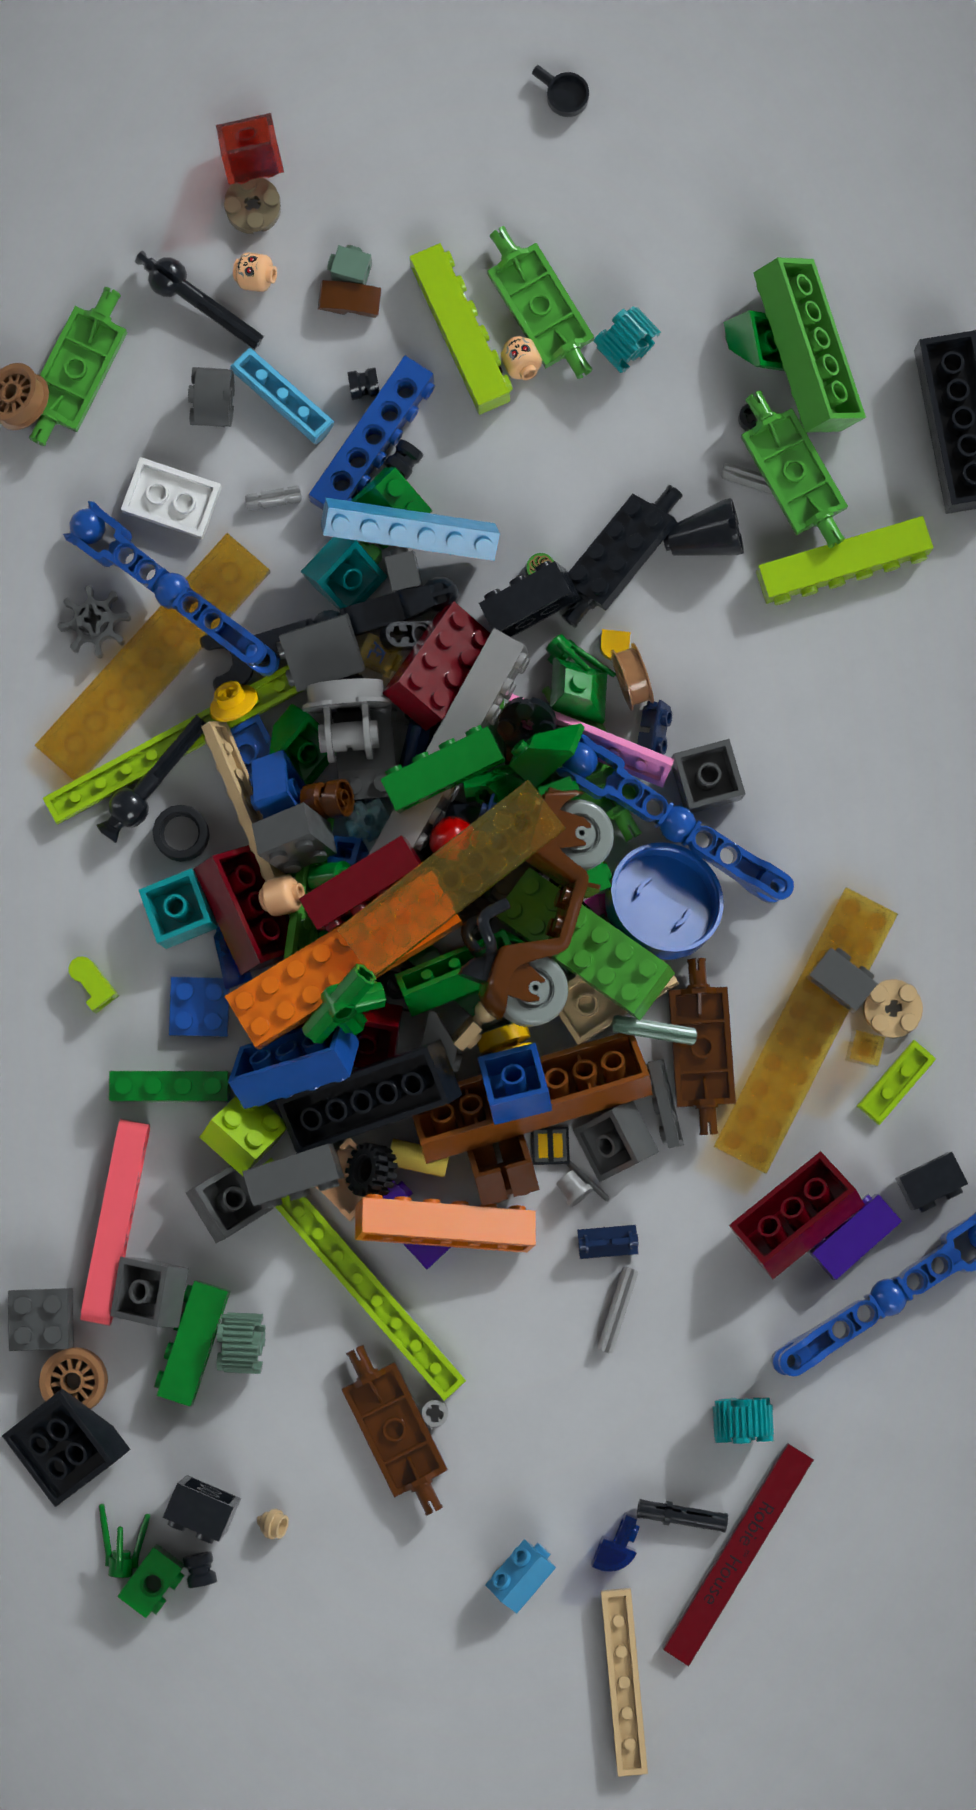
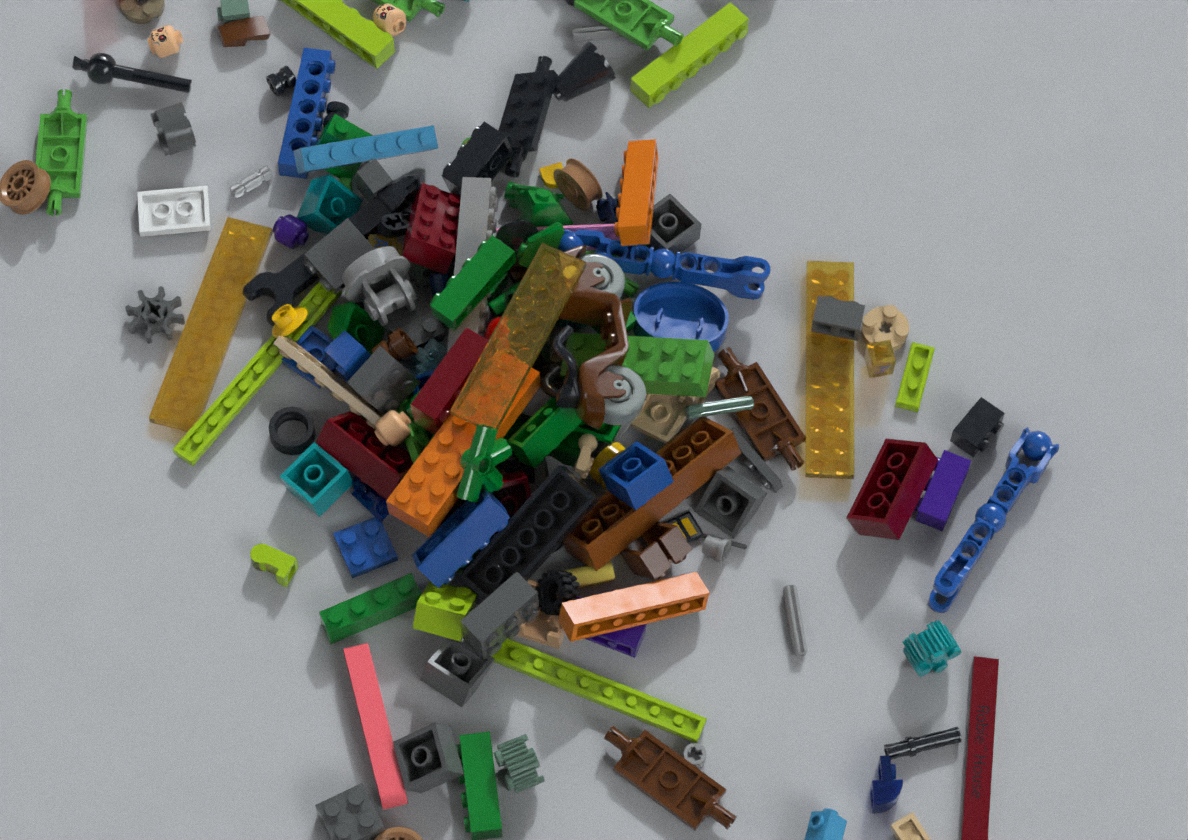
camera: 25 degrees left, 20 degrees down
(130, 806) = (243, 425): black piece -> none
(170, 589) = (268, 269): blue piece -> none
(282, 396) = (226, 112): medium azure brick -> none
(287, 585) = (290, 231): none -> dark purple head
(608, 1241) = (762, 575): dark blue hinge -> none
(691, 723) = (637, 193): none -> orange brick

